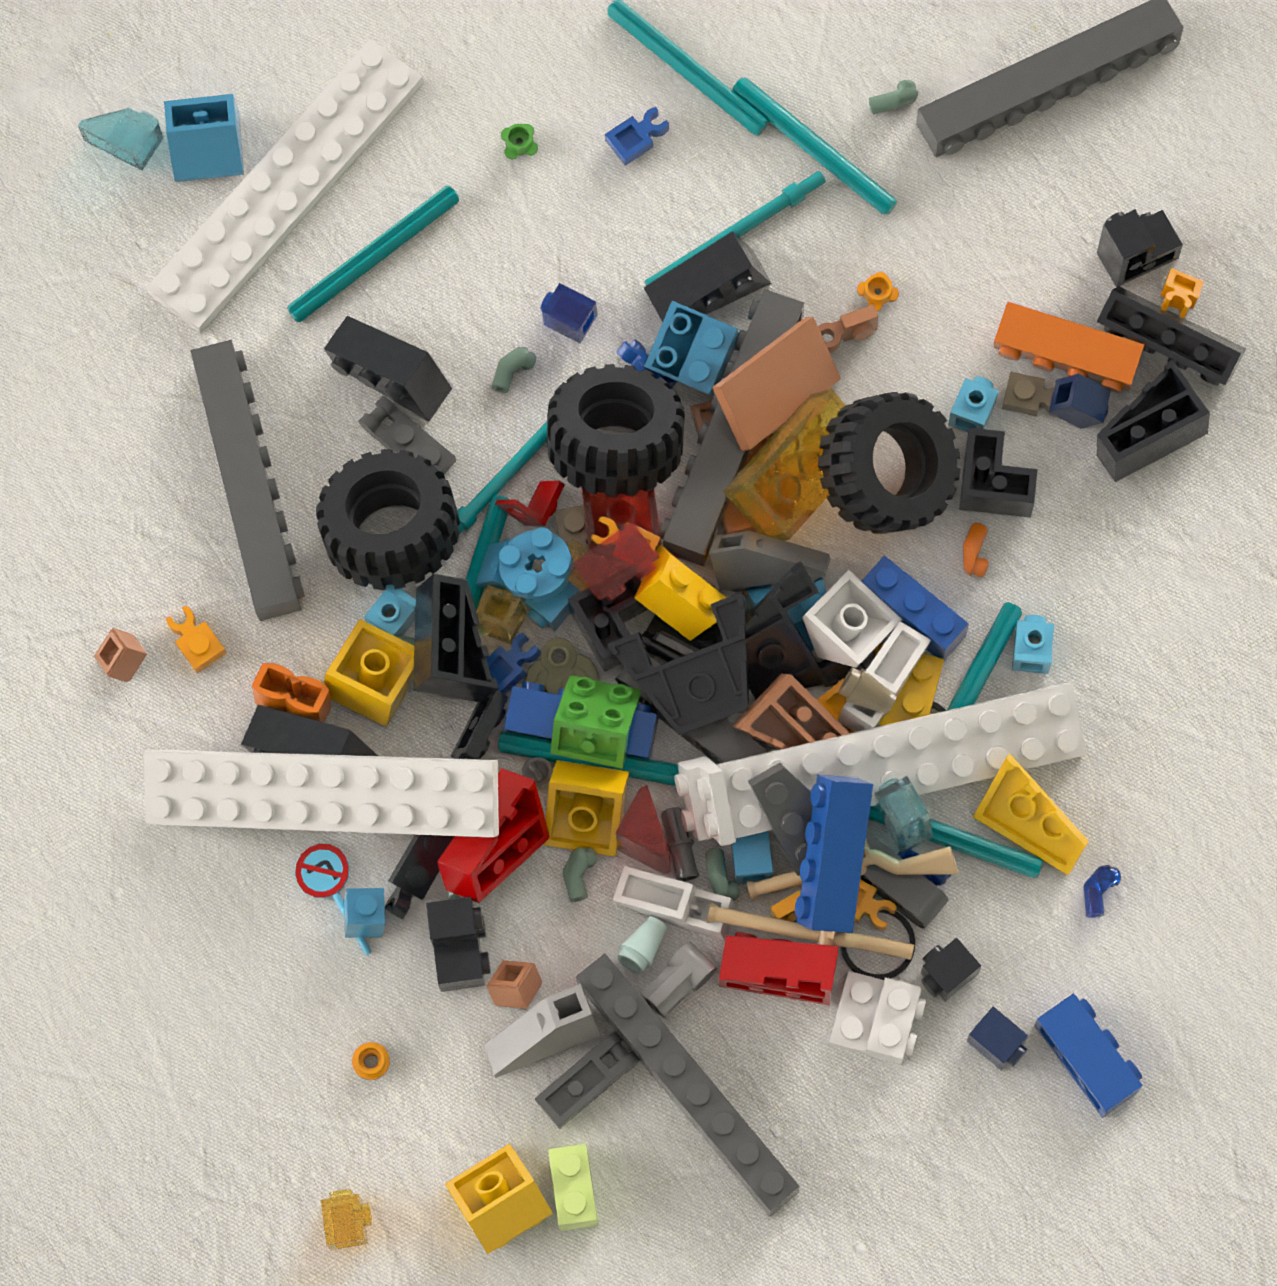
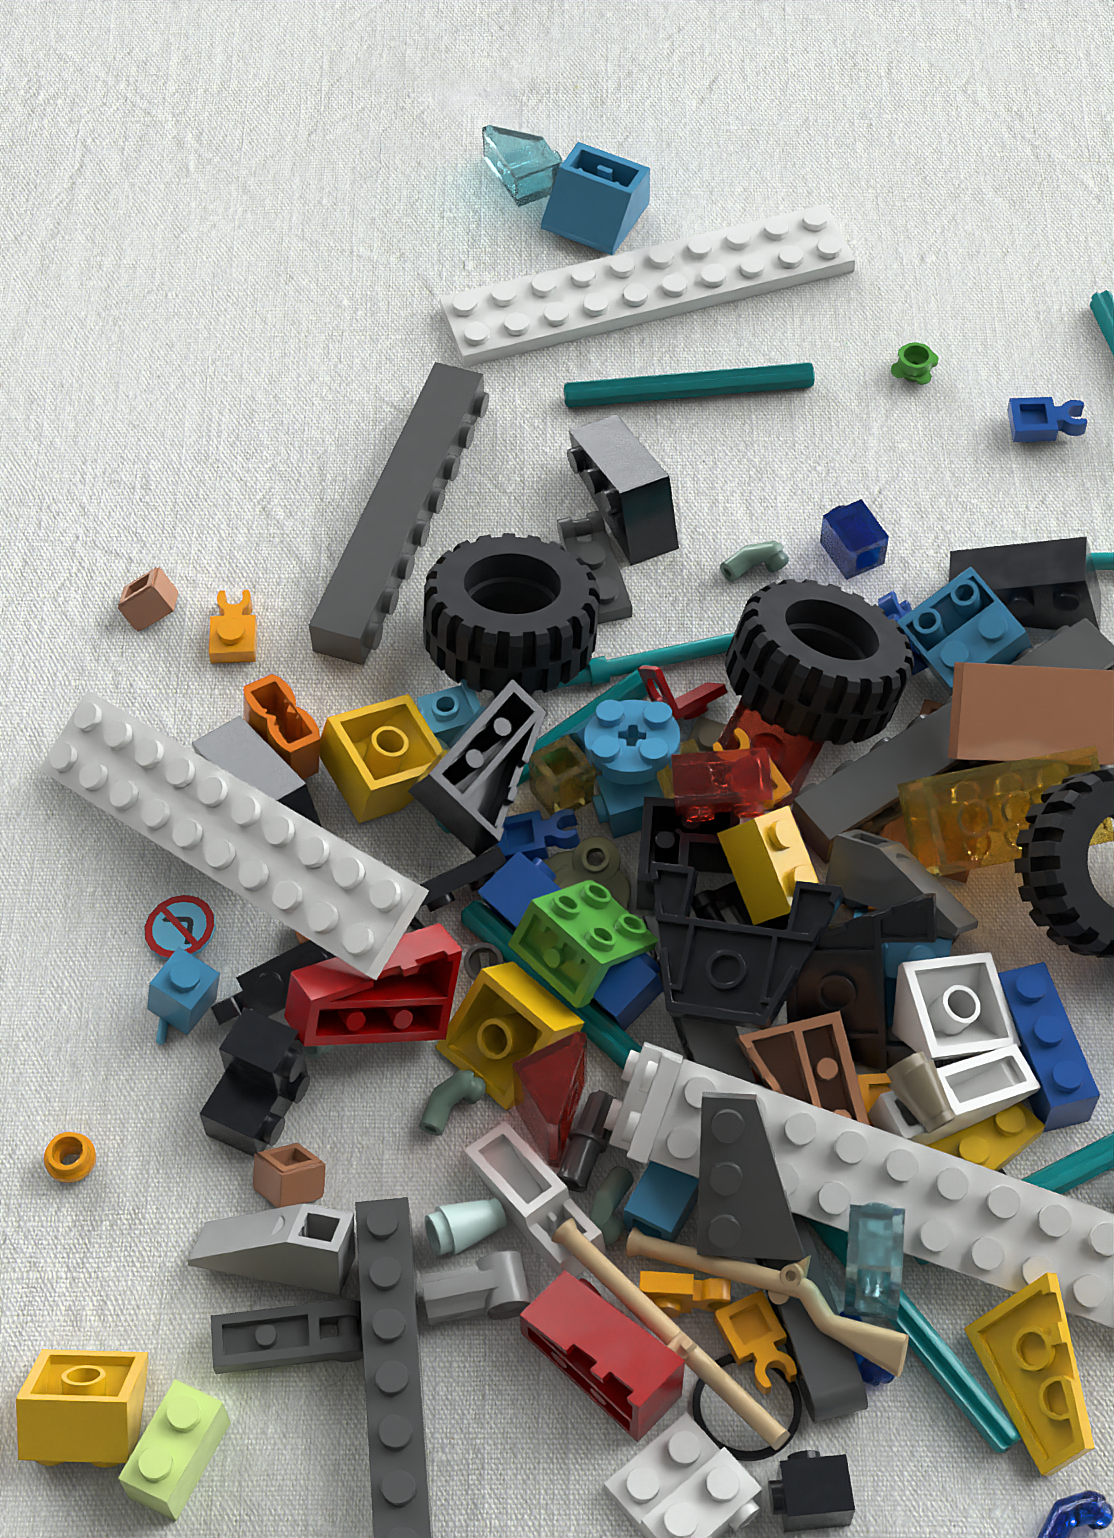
camera: 30 degrees right, 15 degrees down
(834, 853) = (752, 1247): blue brick -> none

